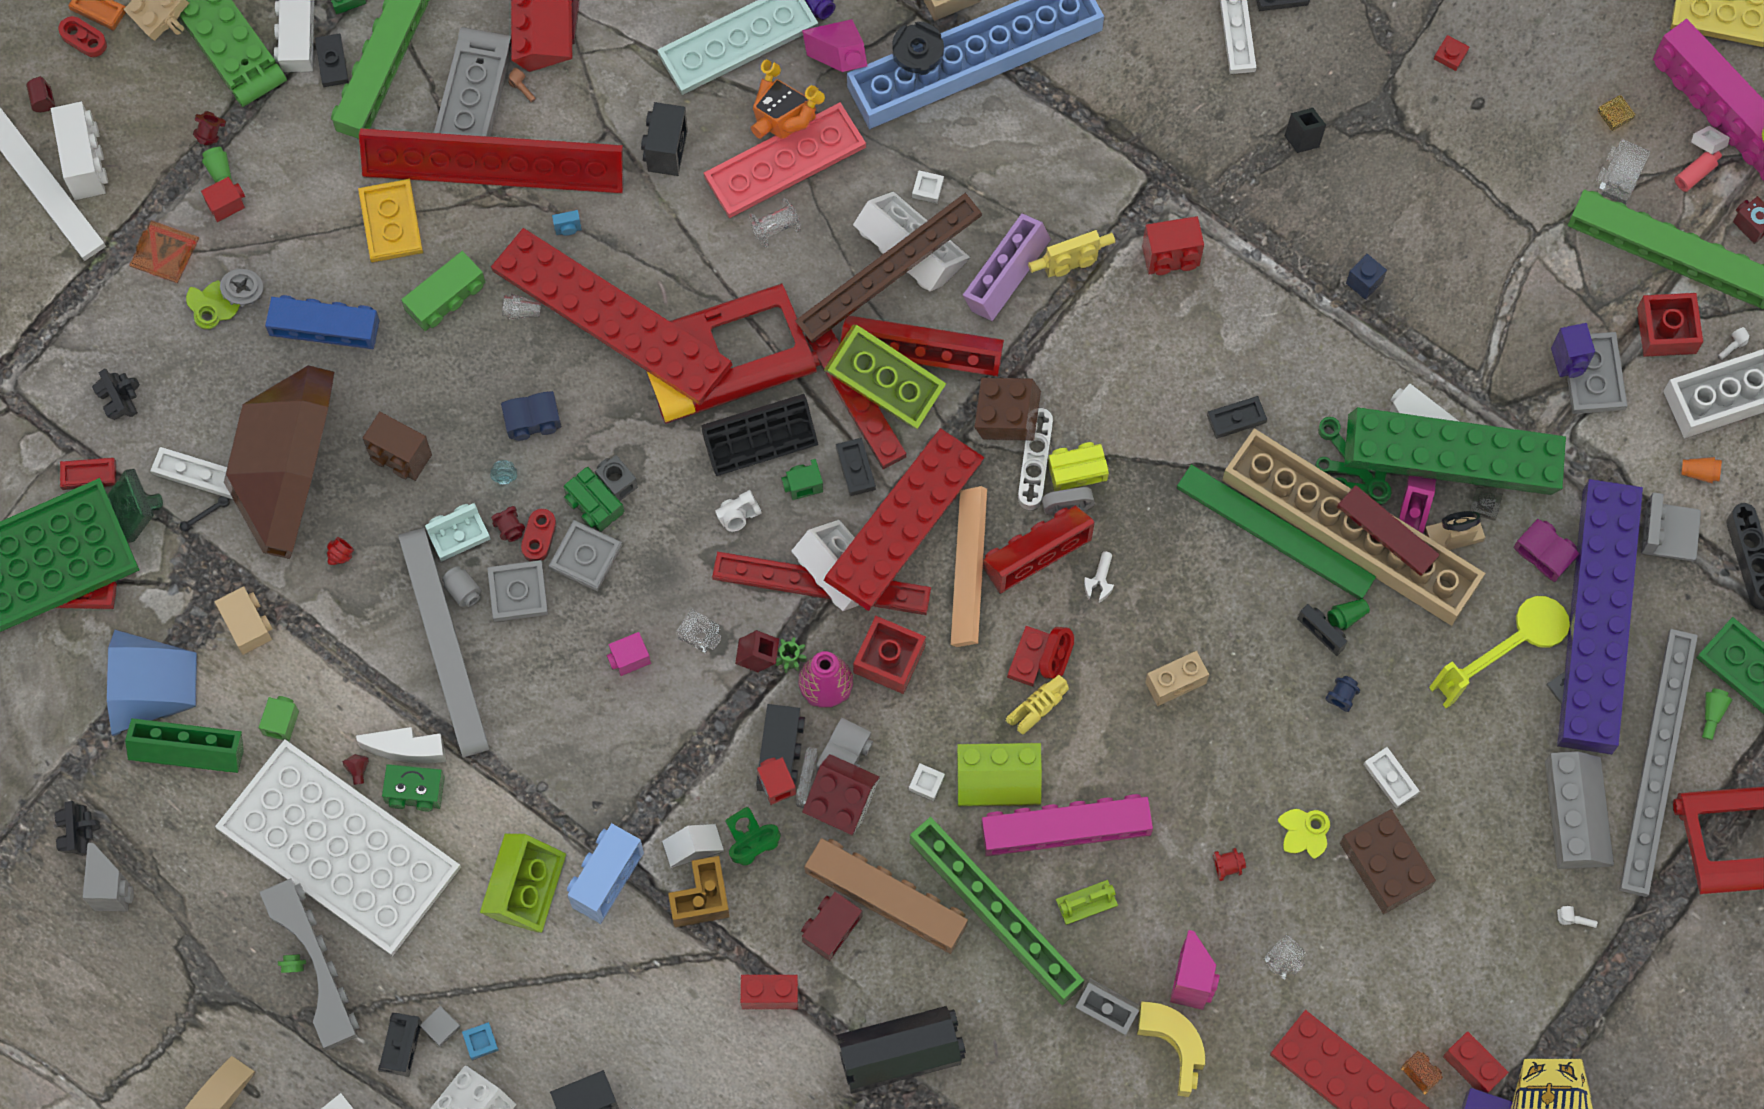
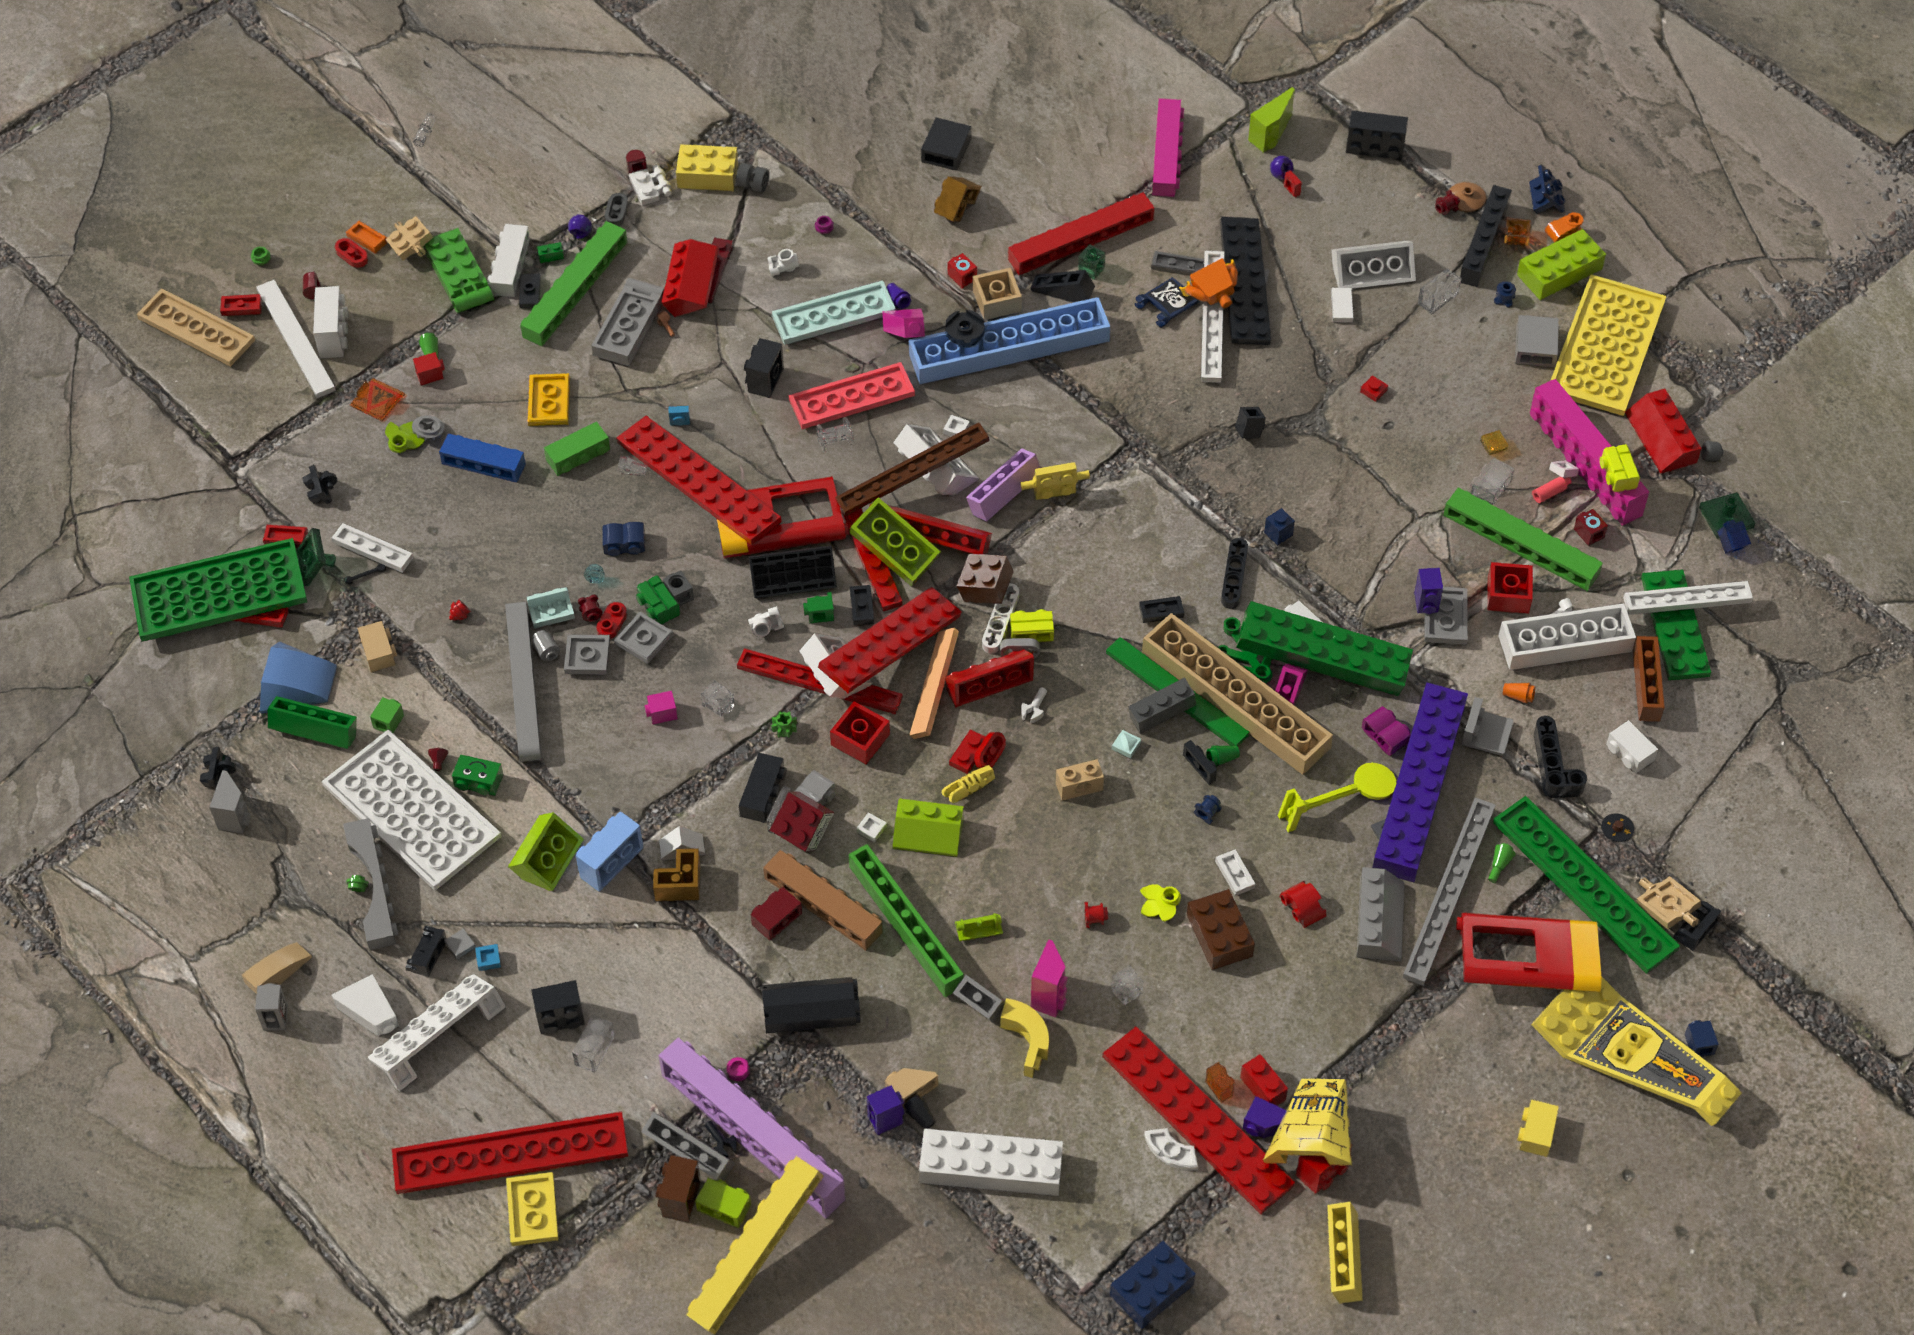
camera: 10 degrees right, 15 degrees down
(208, 128) = (428, 321): dark red brick -> none
(277, 456) = (422, 537): reddish brown panel -> none
(397, 447) = (518, 543): reddish brown brick -> none
(404, 746) = (476, 745): white slope -> none
(491, 160) = (632, 366): red plate -> none
(753, 841) = (731, 847): green bracket -> none
(757, 651) = (759, 716): dark red brick -> none
(769, 992) = (718, 953): red brick -> none
(776, 780) = (753, 802): red brick -> none
(781, 107) = (856, 358): torso -> none
(825, 680) = (807, 742): dark pink cone -> none
(1066, 826) = (973, 870): dark pink brick -> none
(1173, 245) = (1133, 485): red brick -> none
(1225, 615) = (1126, 744): none -> light aqua tile
(1263, 559) = (1162, 705): none -> dark grey brick
(1319, 349) = (1236, 573): none -> black beam
(1388, 530) = (1261, 694): dark red tile -> none
(1457, 530) = (1321, 708): tan piece -> none
(1483, 805) = (1305, 903): none -> red cylinder
(1567, 917) = (1357, 991): white hand -> none

